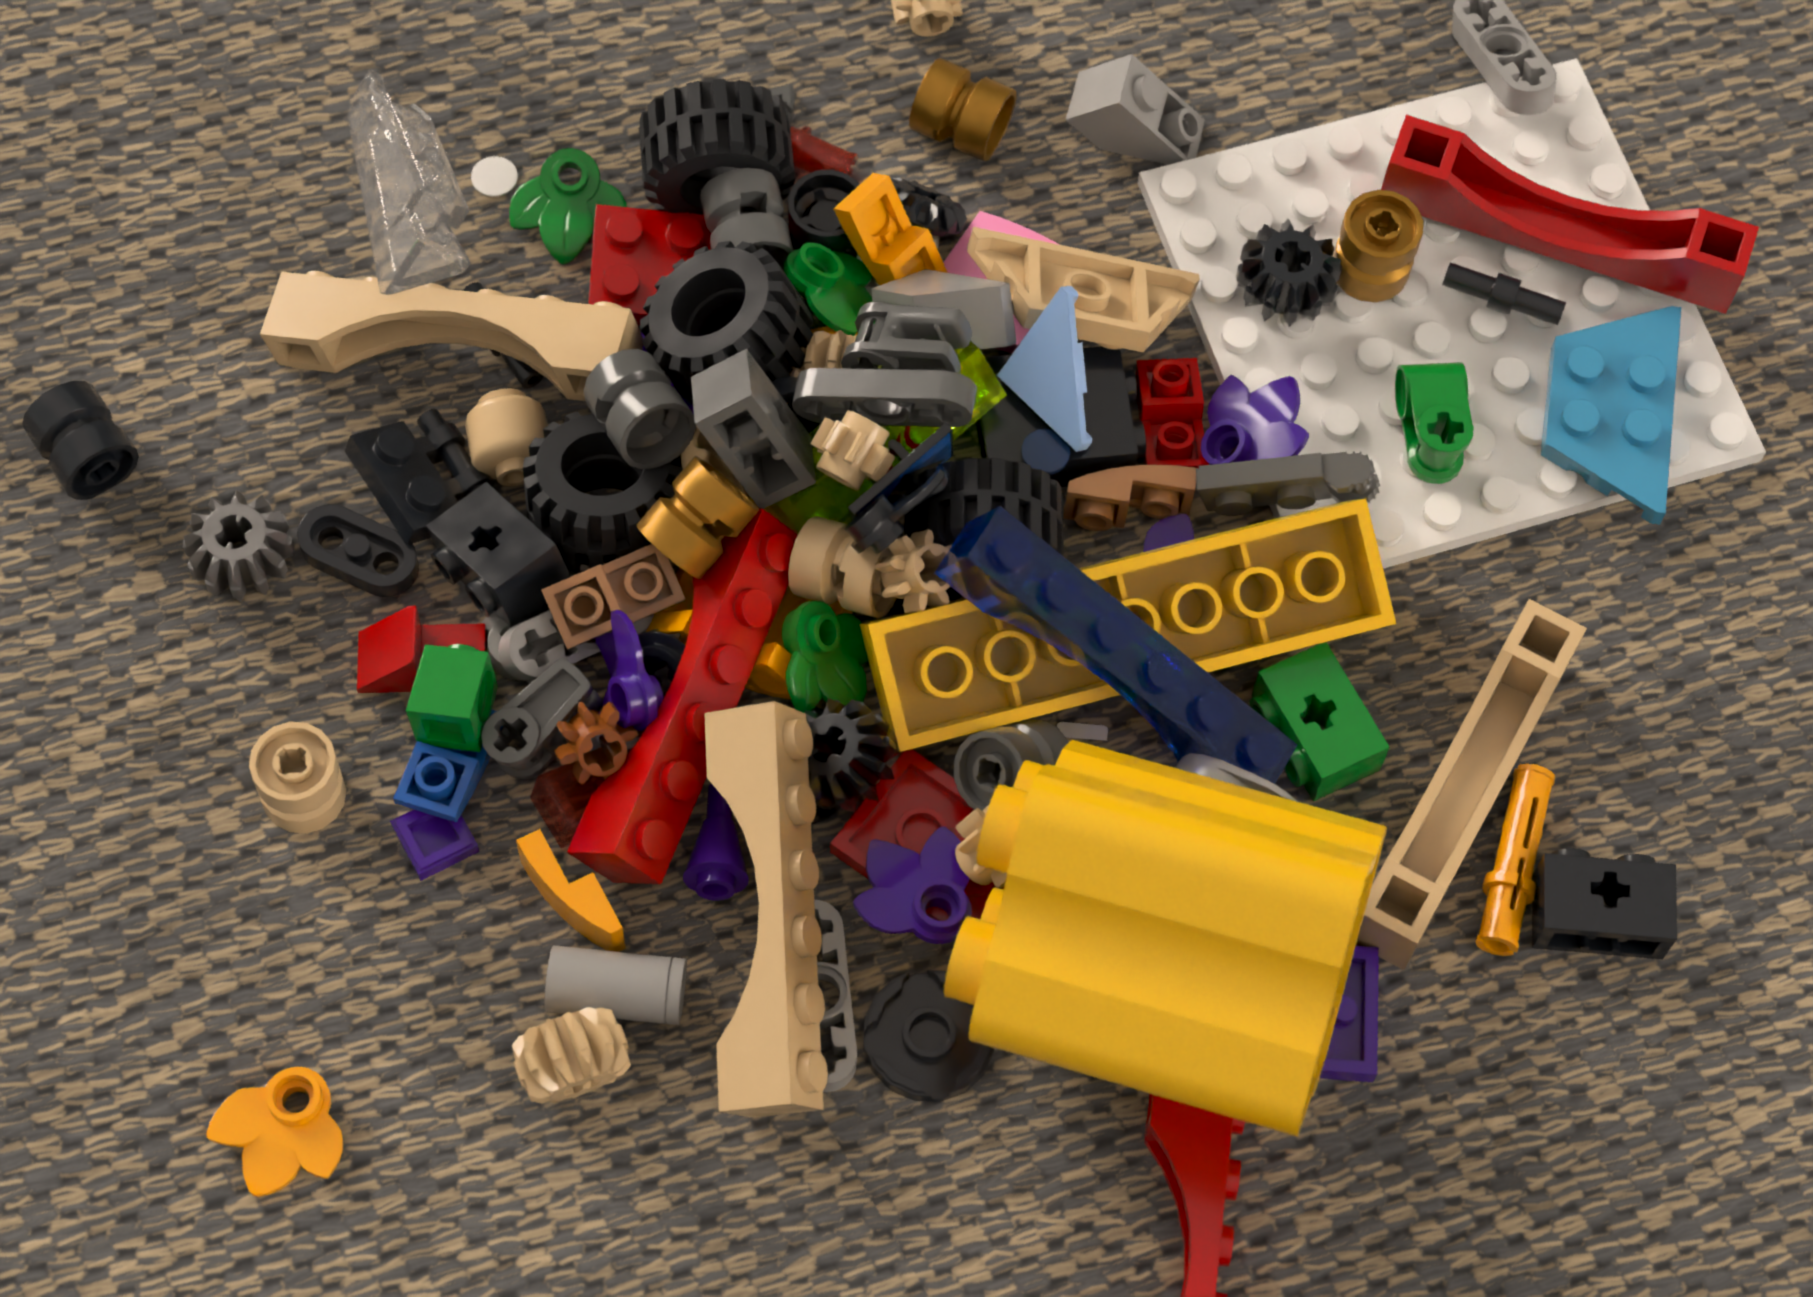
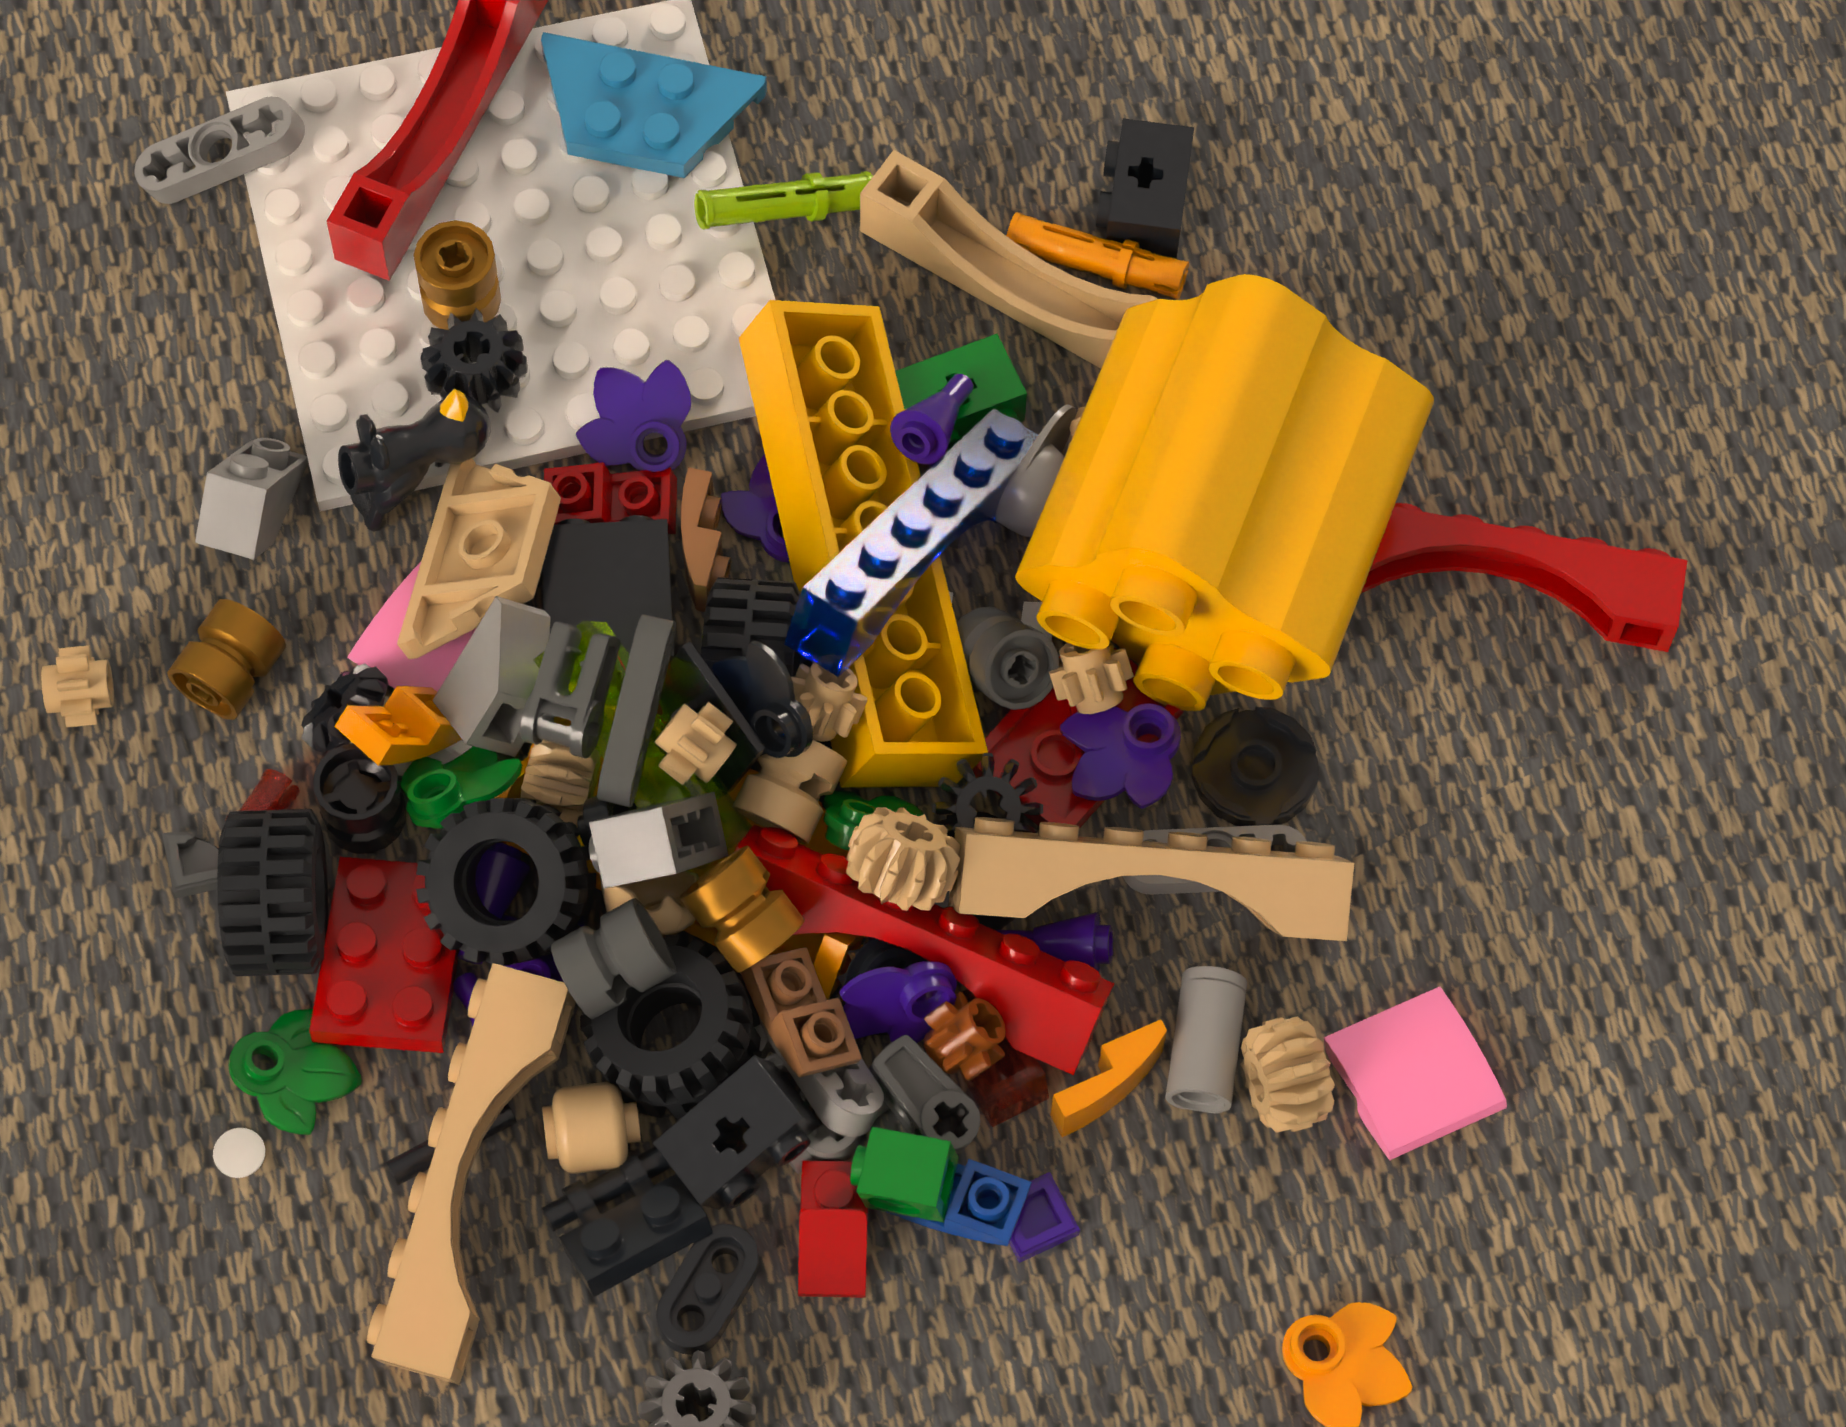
camera: 85 degrees left, 0 degrees up
(297, 777) = (979, 1338): tan wheel -> none
(405, 190) = (272, 1226): clear wedge -> none
(589, 1195) = (1415, 1073): none -> bright pink slope
(748, 209) = (371, 863): dark grey wheel -> none
(755, 654) = (903, 858): none -> tan gear
(1045, 451) = (661, 599): dark blue piece -> none
(1050, 370) = (585, 578): light blue tile -> none
(1172, 212) = (396, 458): none -> black animal
(1253, 667) = (926, 427): none -> dark purple cone
(1286, 481) = (713, 385): dark grey hinge -> none
(1434, 418) = (644, 253): green piece -> none
(1503, 480) = (757, 203): none -> lime pin
(1504, 293) = (510, 180): black bar -> none

